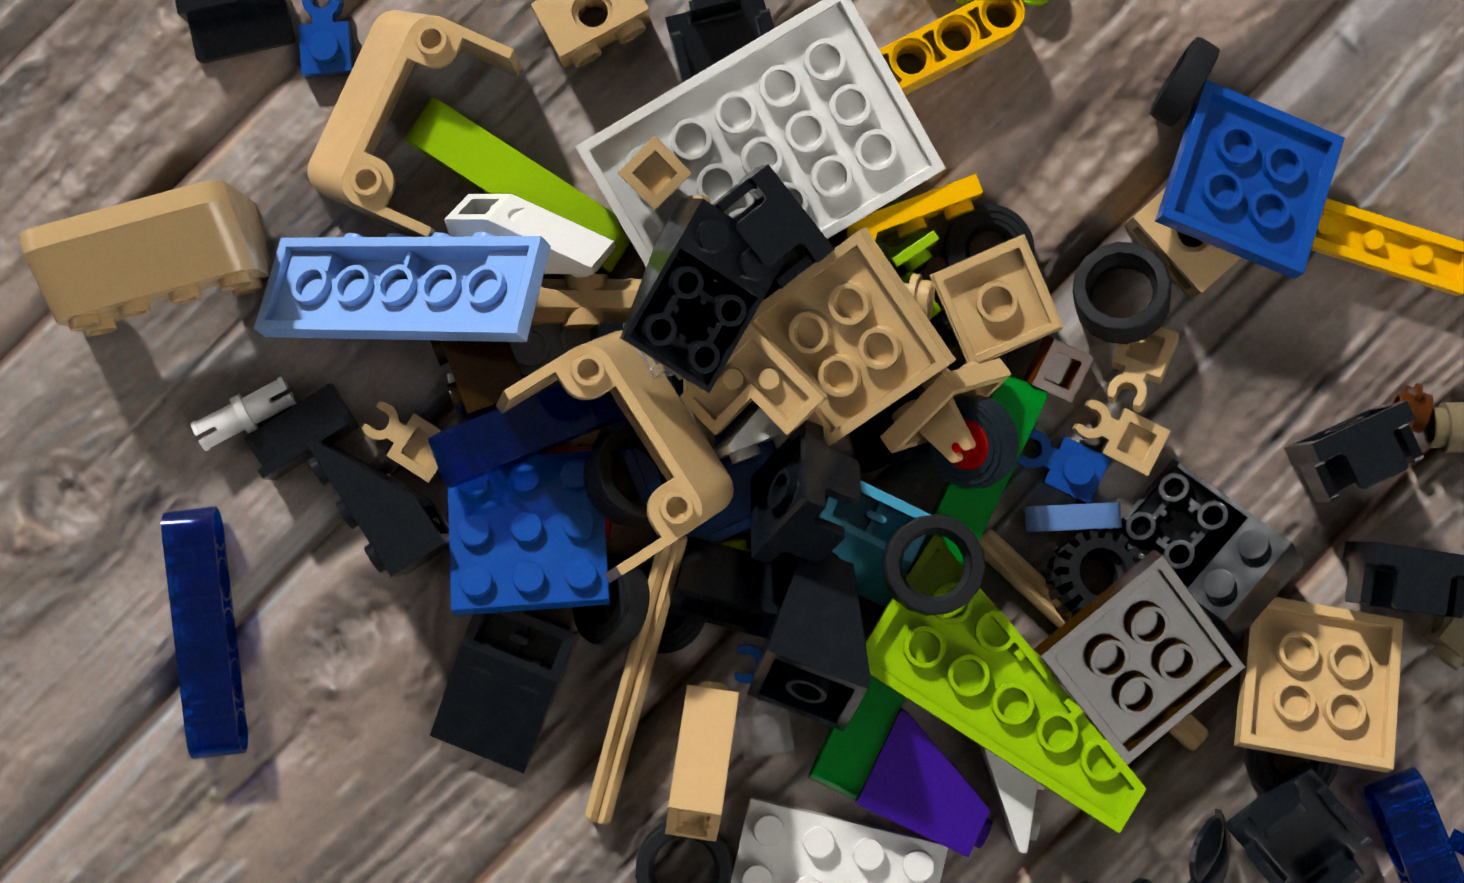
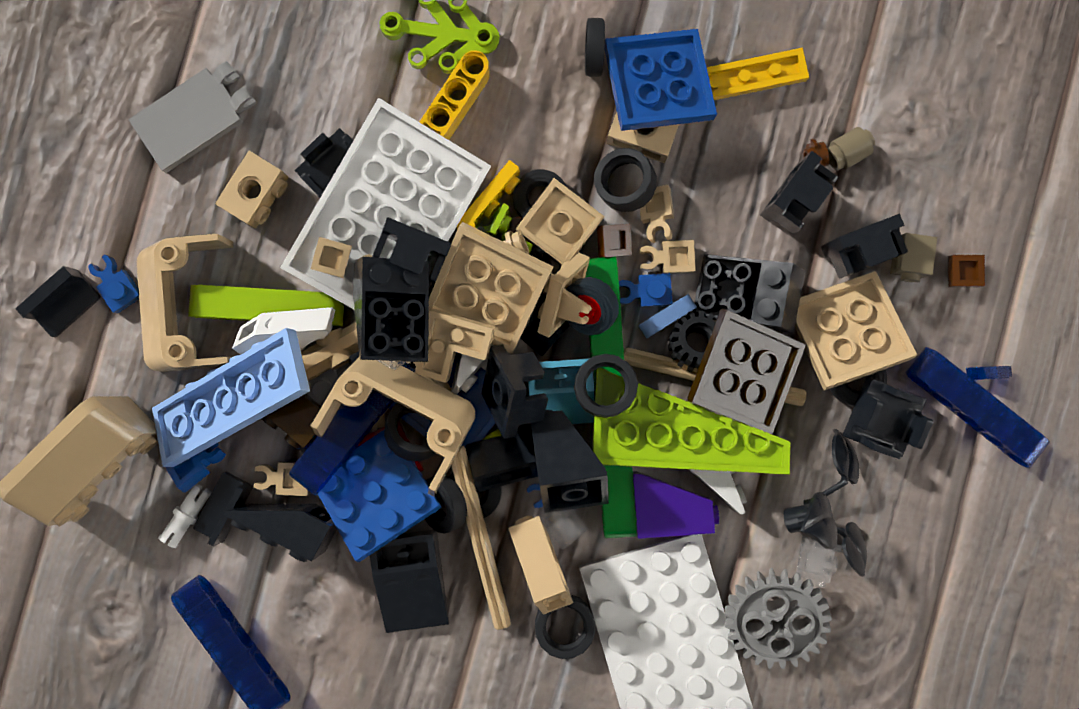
camera: 30 degrees left, 0 degrees up
(293, 356) = (195, 468): none -> blue plate

